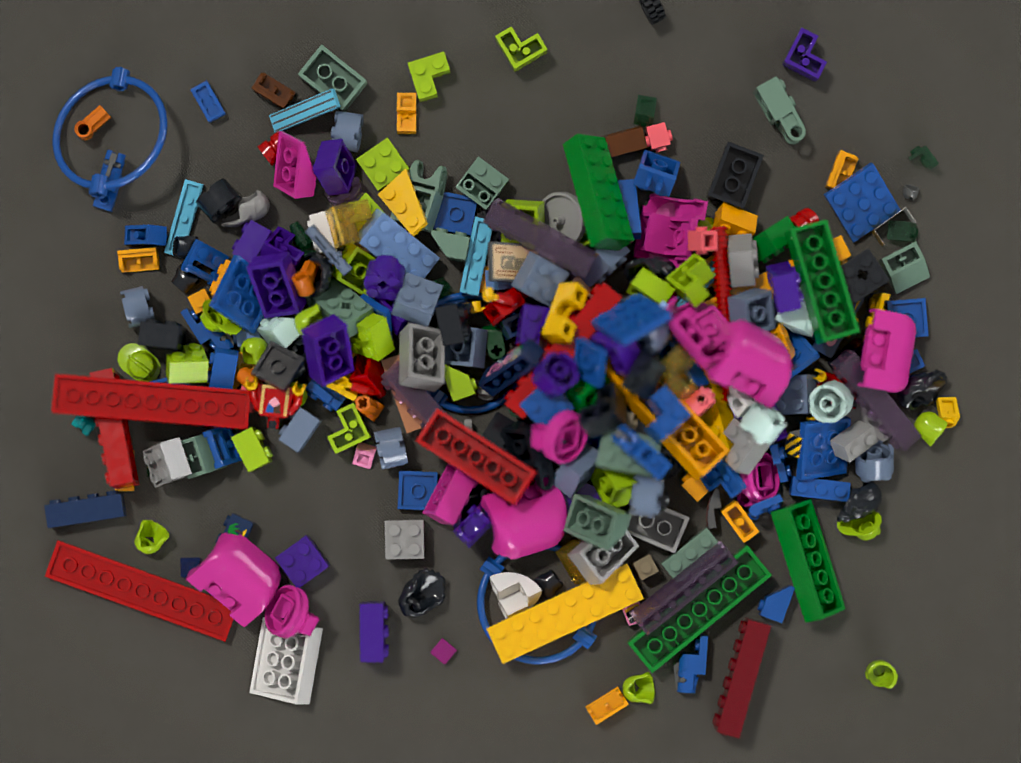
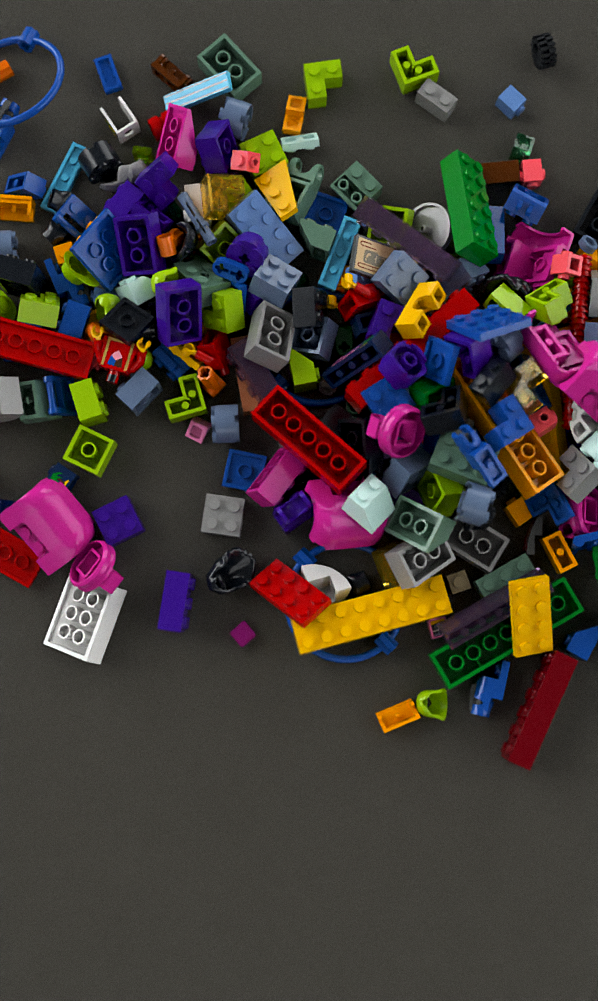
camera: 10 degrees right, 5 degrees down
(240, 160) = (120, 134): none -> white piece
(259, 182) = (143, 153): none -> clear neon green plate
(261, 496) = (90, 451): none -> lime brick
(283, 216) = (155, 181): none -> dark purple brick
(366, 180) = (245, 161): none -> coral brick
(371, 297) = (230, 270): none -> blue beam
(417, 142) = (303, 141): none -> light aqua plate
(483, 605) = (290, 593): none -> red plate
(546, 510) = (369, 504): none -> light aqua slope
(549, 75) = (436, 100): none -> light grey brick
(627, 64) = (511, 102): none -> medium blue brick
(718, 590) = (530, 615): none -> yellow plate
(723, 208) = (588, 244): none -> sand blue tile

